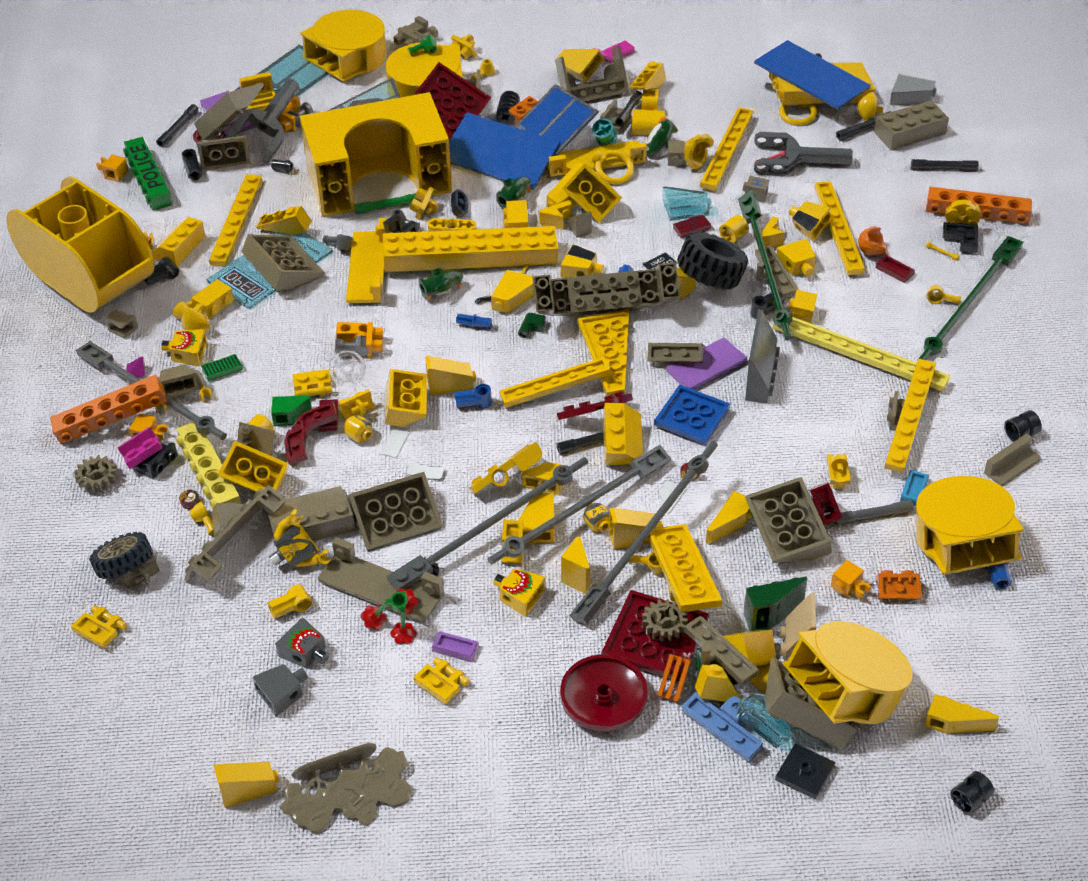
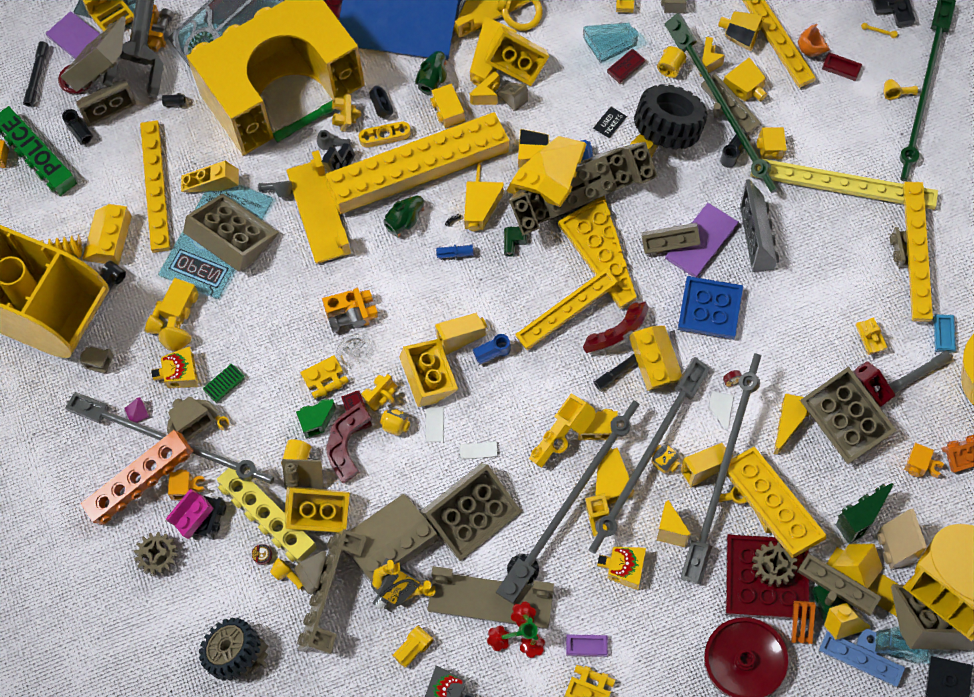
camera: 15 degrees left, 20 degrees up
(581, 268) = (550, 170): none -> yellow wedge

